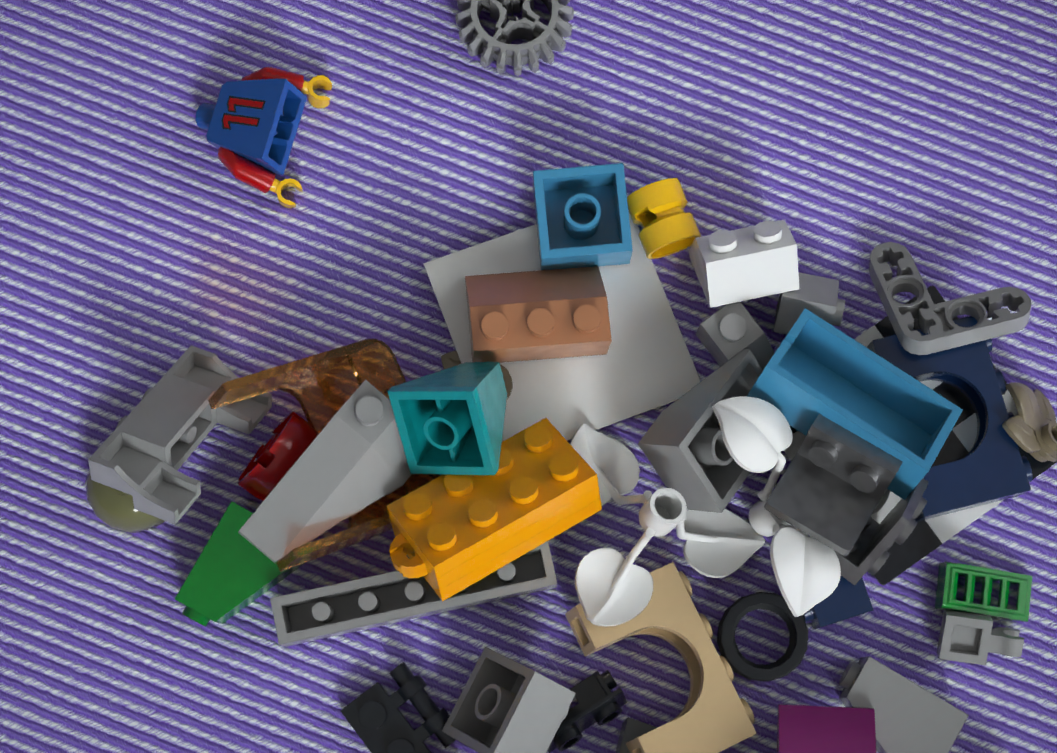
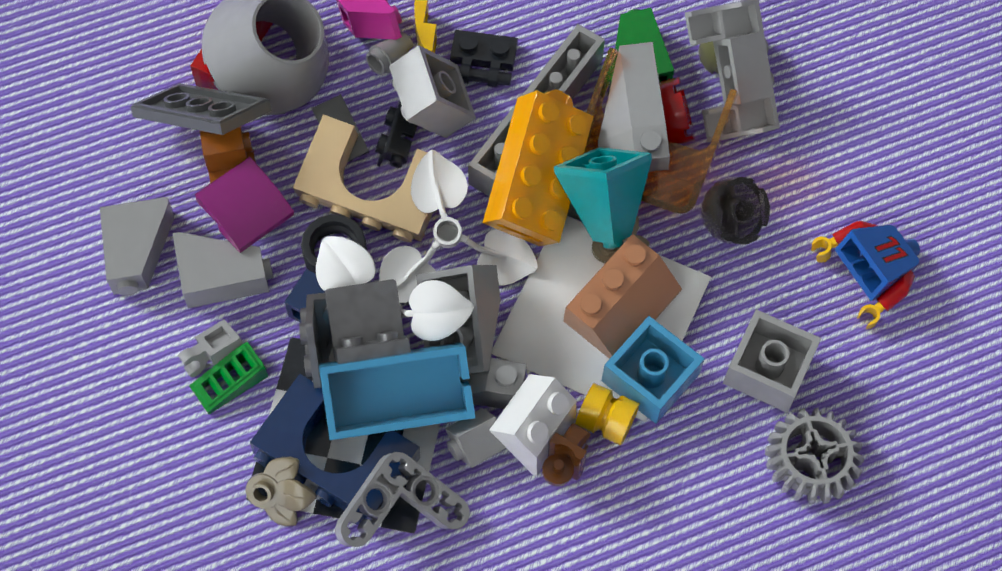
camera: 135 degrees right, 15 degrees down
(339, 295) = (735, 210): none -> clear smoke cylinder
(463, 124) = (771, 360): none -> light grey brick
(744, 207) = (566, 456): none -> reddish brown hips

